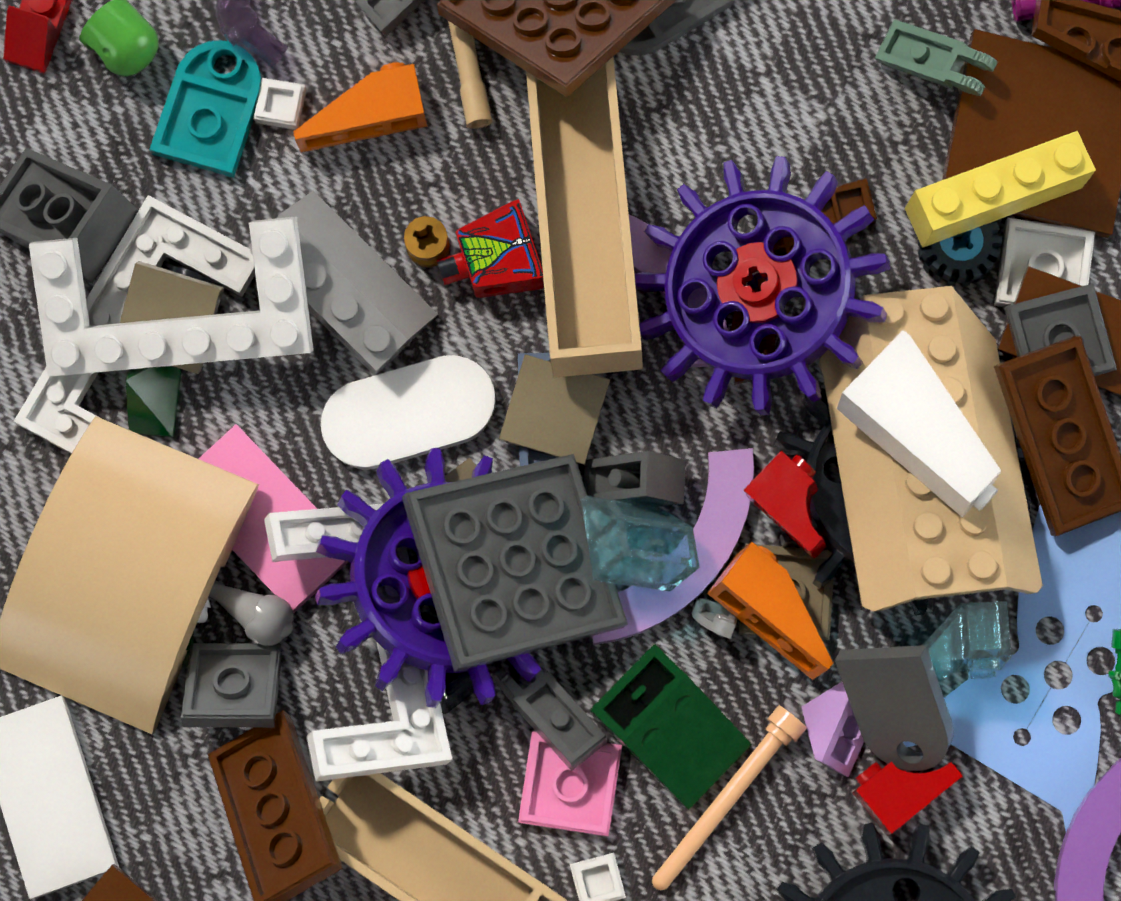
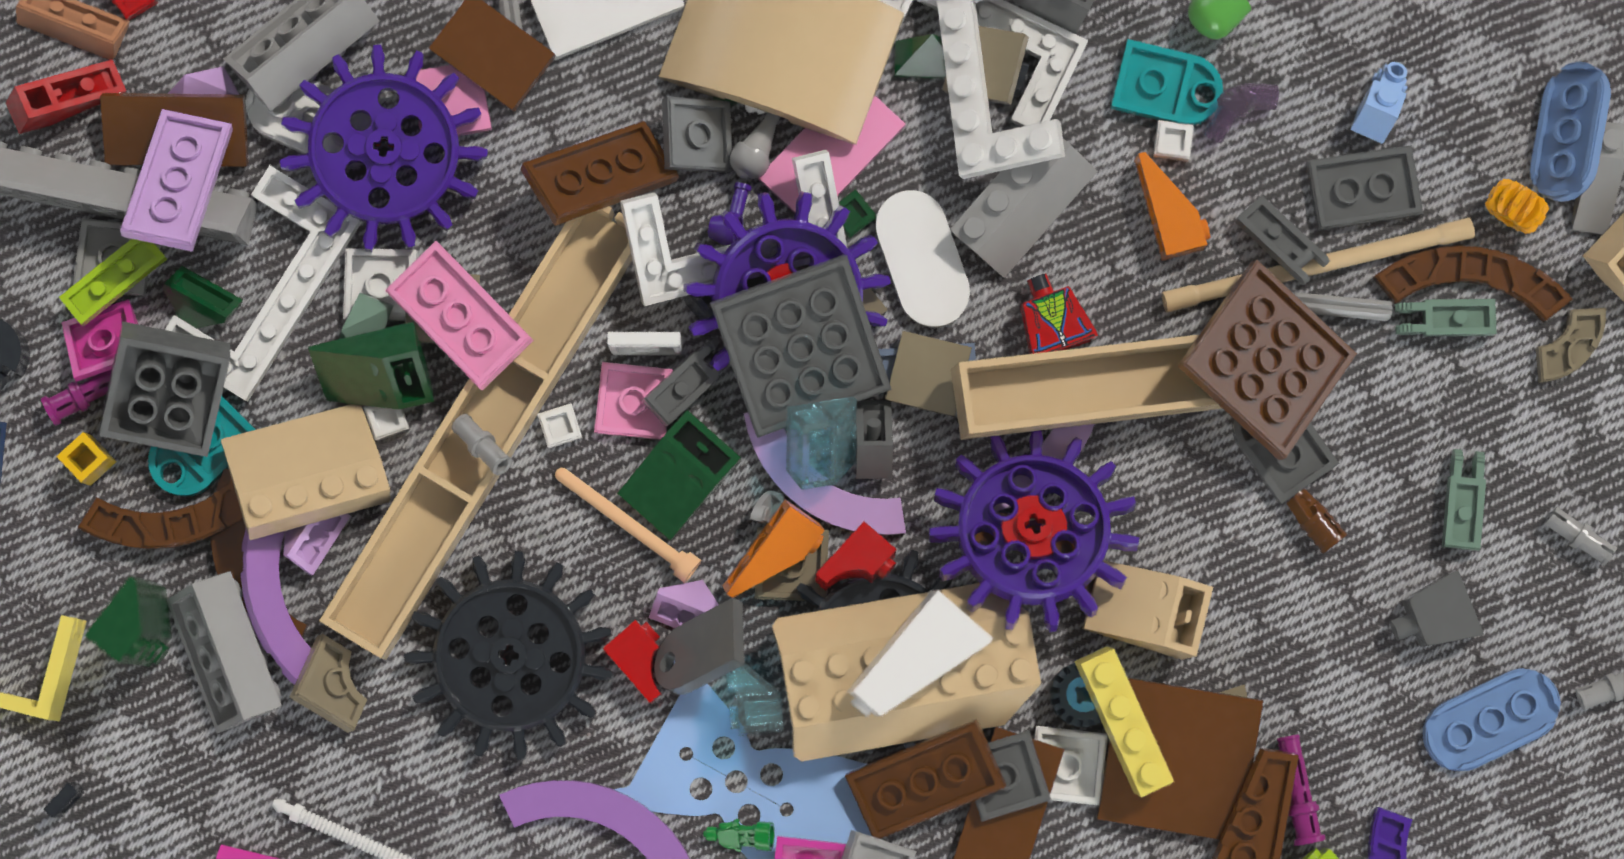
camera: 75 degrees right, 5 degrees up
(346, 479) = (860, 214): none -> dark green tile
(352, 663) = (717, 230): none -> dark purple bar
(426, 251) = (1059, 271): pearl gold wheel -> none
(499, 761) = (645, 343): none -> white tile
(866, 148) = (1151, 611): none -> tan slope
(932, 57) = (1238, 665): sand green hinge -> none

